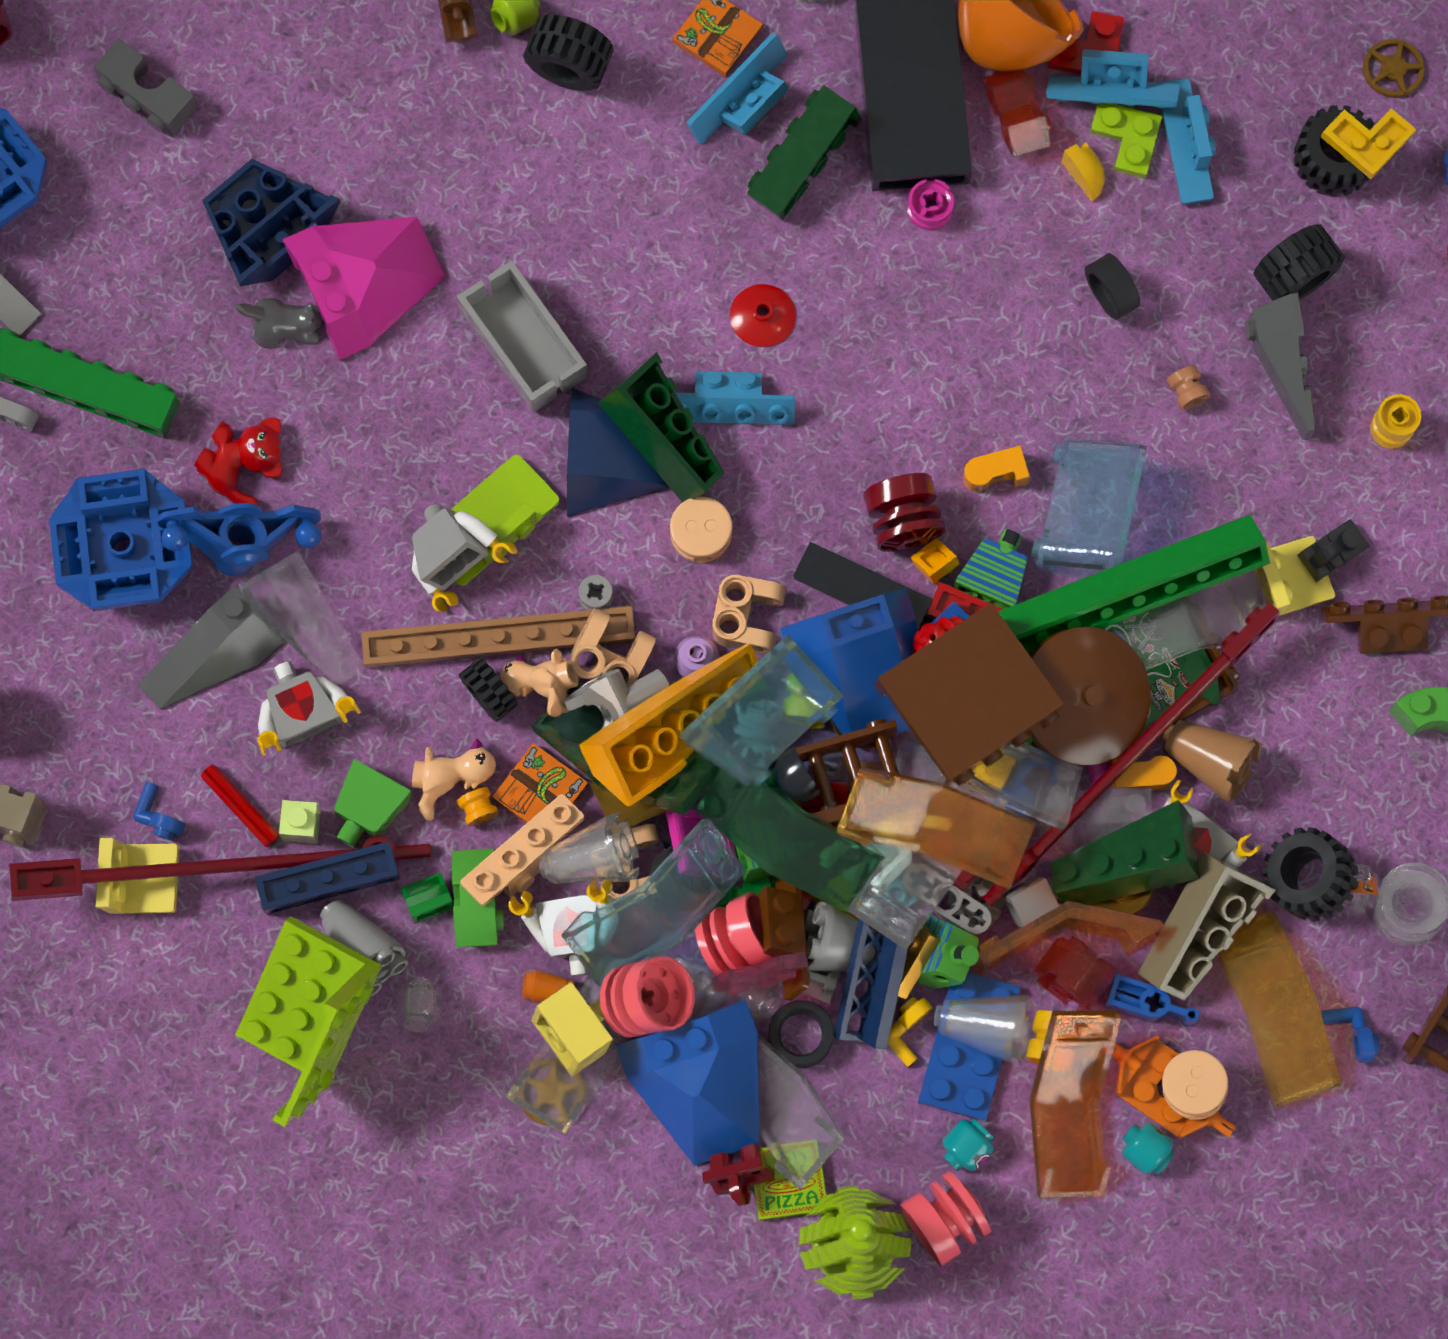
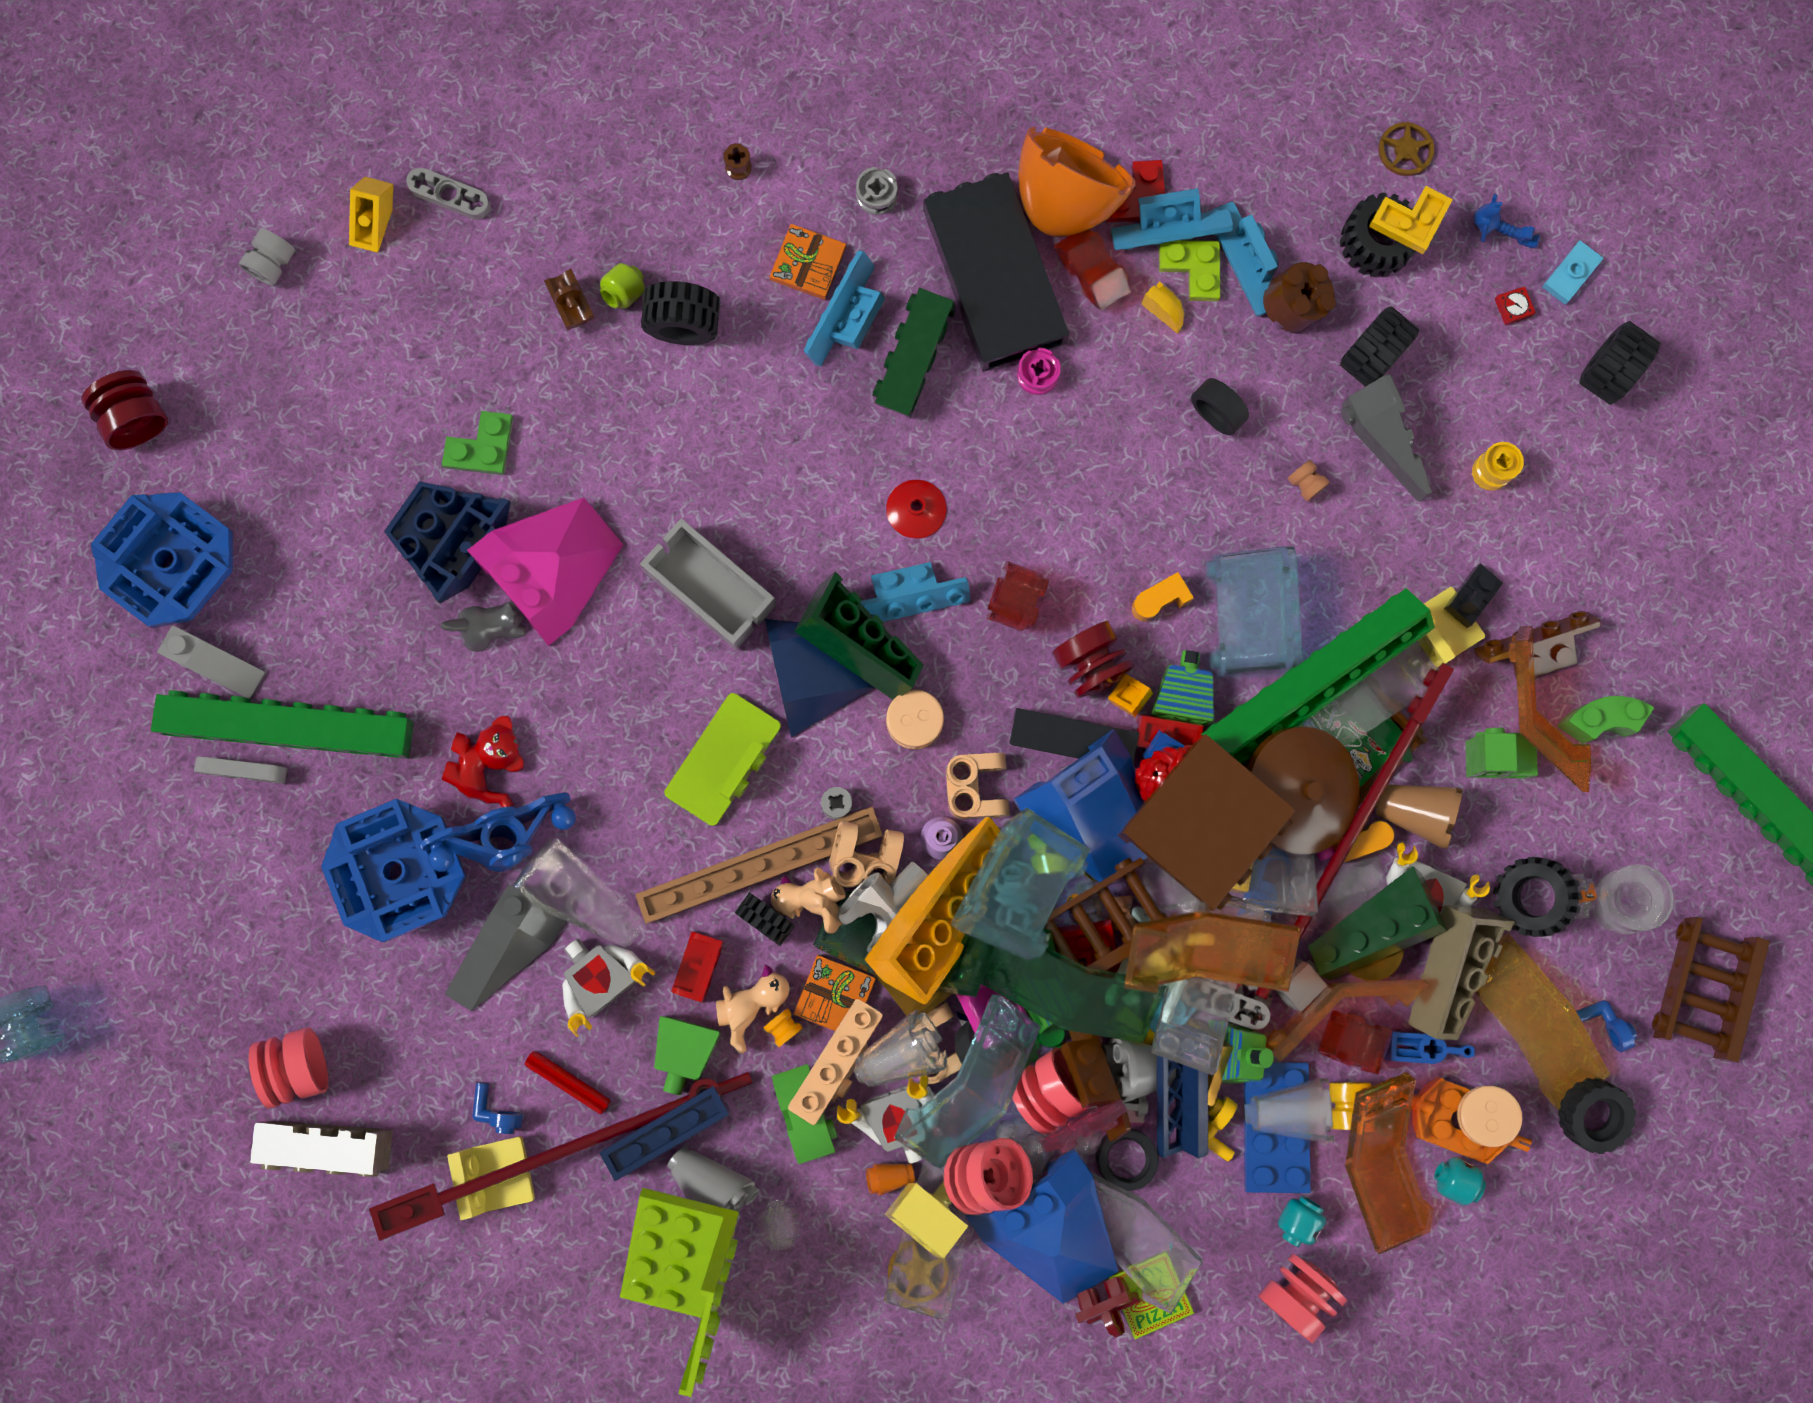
camera: 20 degrees left, 5 degrees up
(165, 106) = (328, 450): dark grey arch -> none
(299, 822) = (626, 1086): yellowish green brick -> none
(326, 148) = (486, 453): none -> bright green plate
(407, 723) = (697, 967): none -> red hinge
(427, 898) = (759, 1122): green piece -> none
(449, 548) = (696, 798): light grey torso -> none
(794, 778) = (1066, 938): black hair -> none
(840, 427) = (1016, 597): none -> clear red brick
(854, 1242) = (1228, 1341): lime plant -> none
(1229, 193) = (1299, 296): none -> reddish brown brick
(1294, 1099) = (1616, 1128): none -> black tyre
(1314, 723) = (1500, 755): none -> bright green brick
(1388, 746) = (1569, 758): none -> clear orange windscreen

